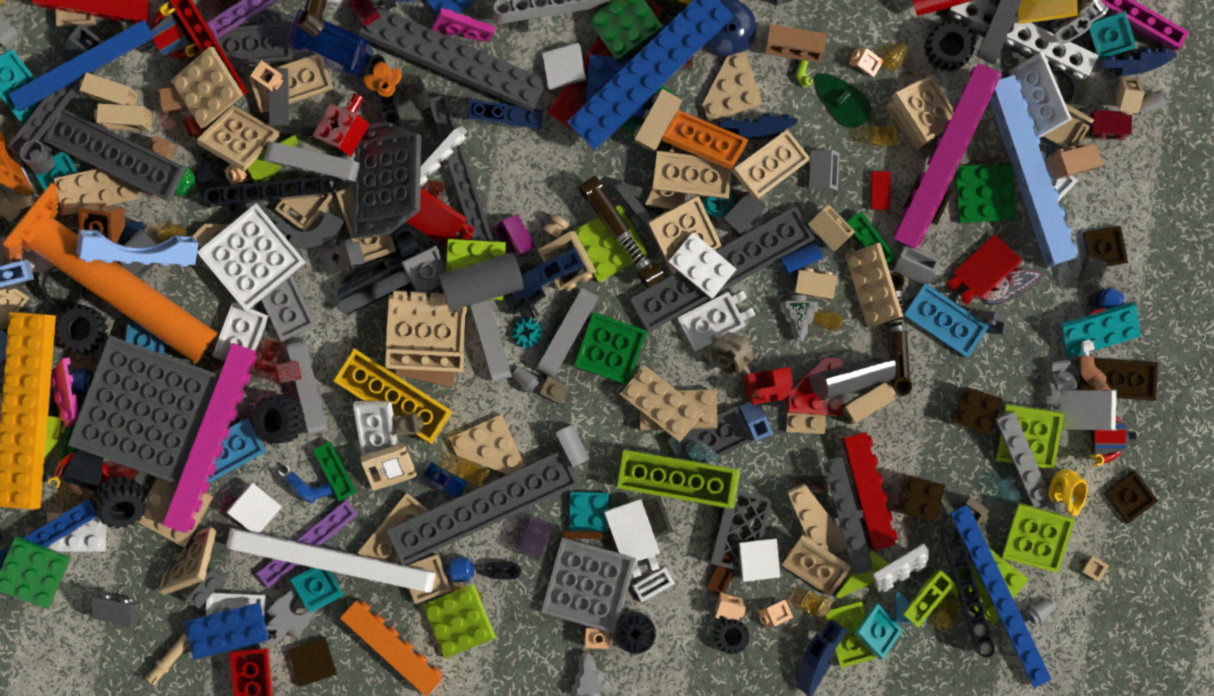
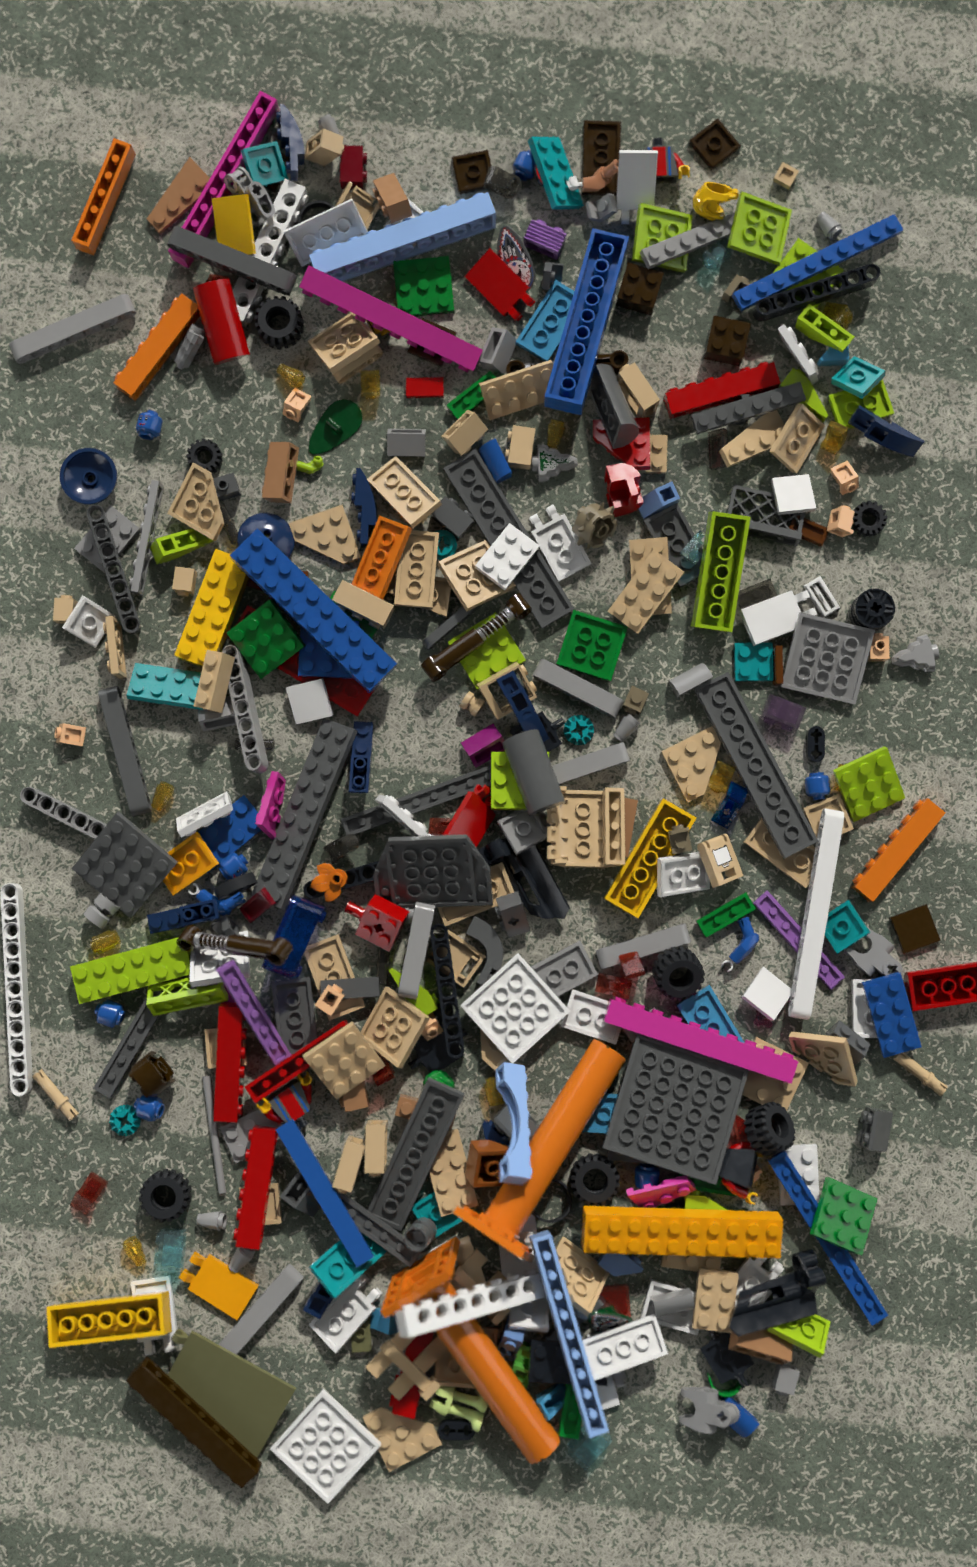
camera: 95 degrees left, 0 degrees up
(940, 353) = (586, 322): none -> blue brick
(1032, 316) = (544, 239): none -> medium lavender brick

